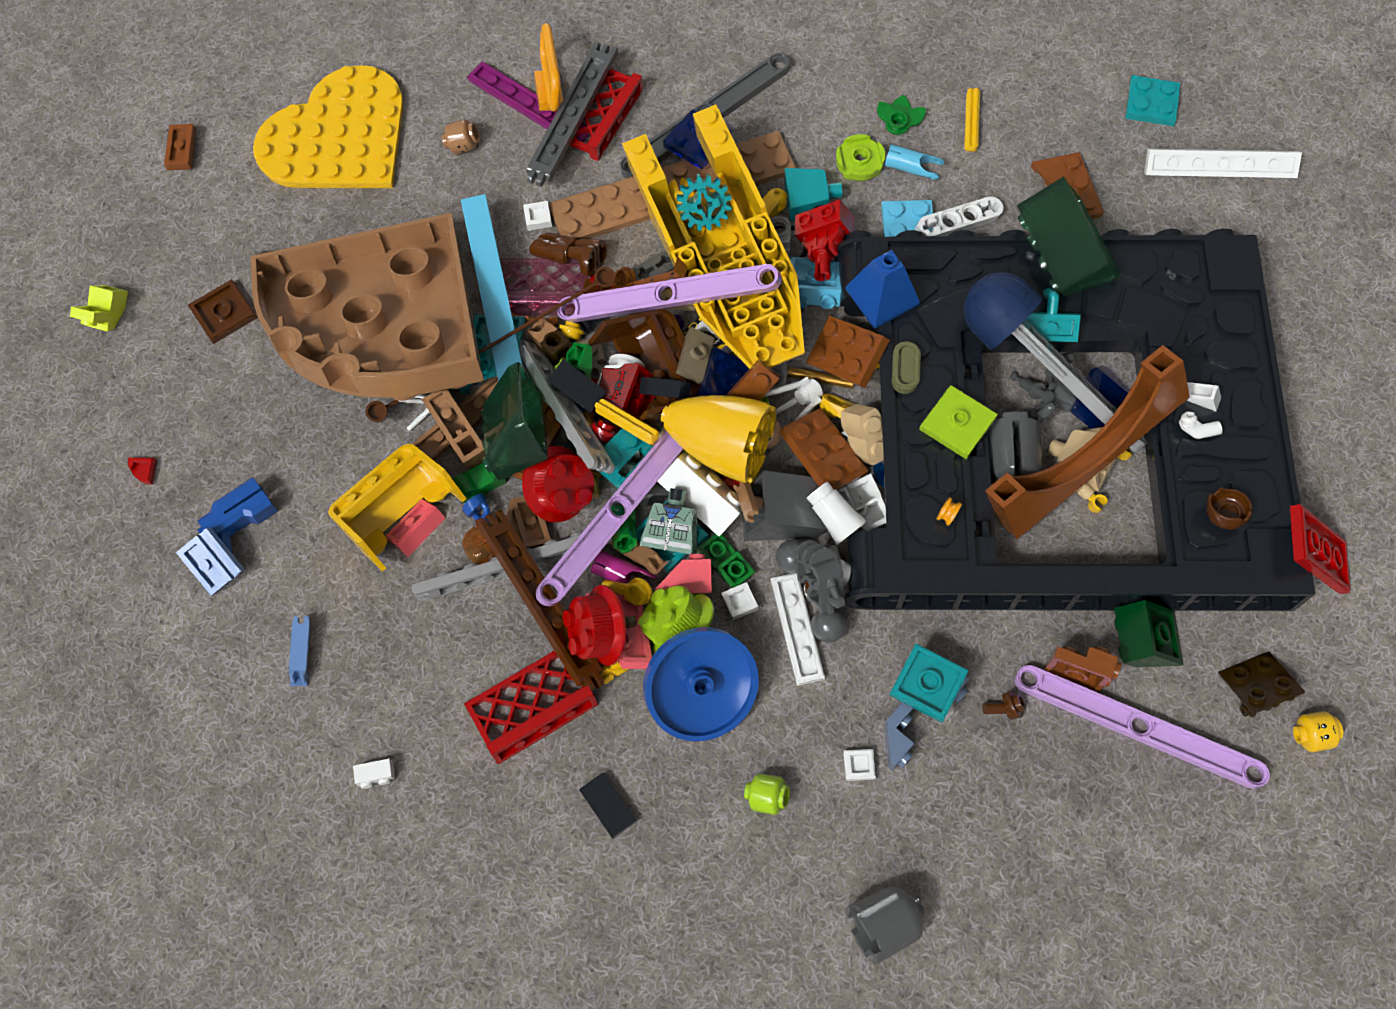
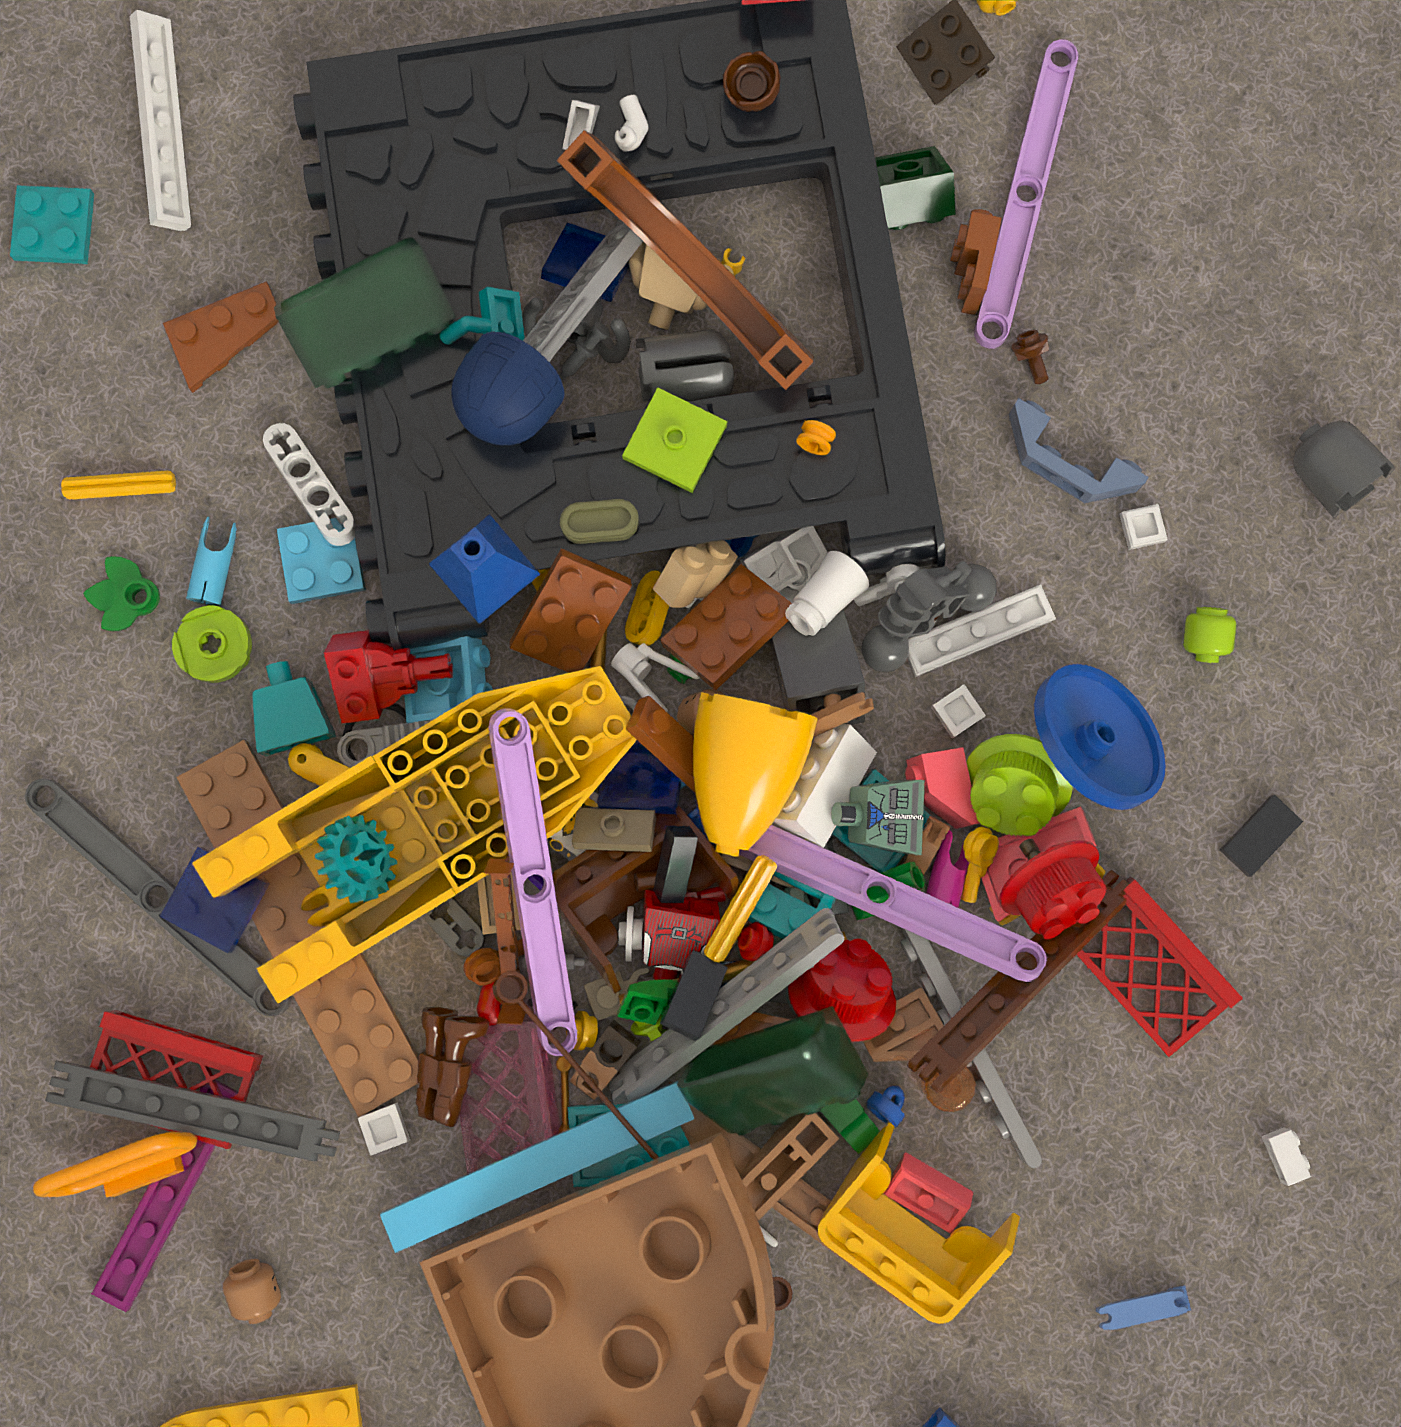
camera: 105 degrees left, 15 degrees up
(725, 561) = (903, 739): green slope -> none
(928, 683) = (1040, 445): teal plate -> none

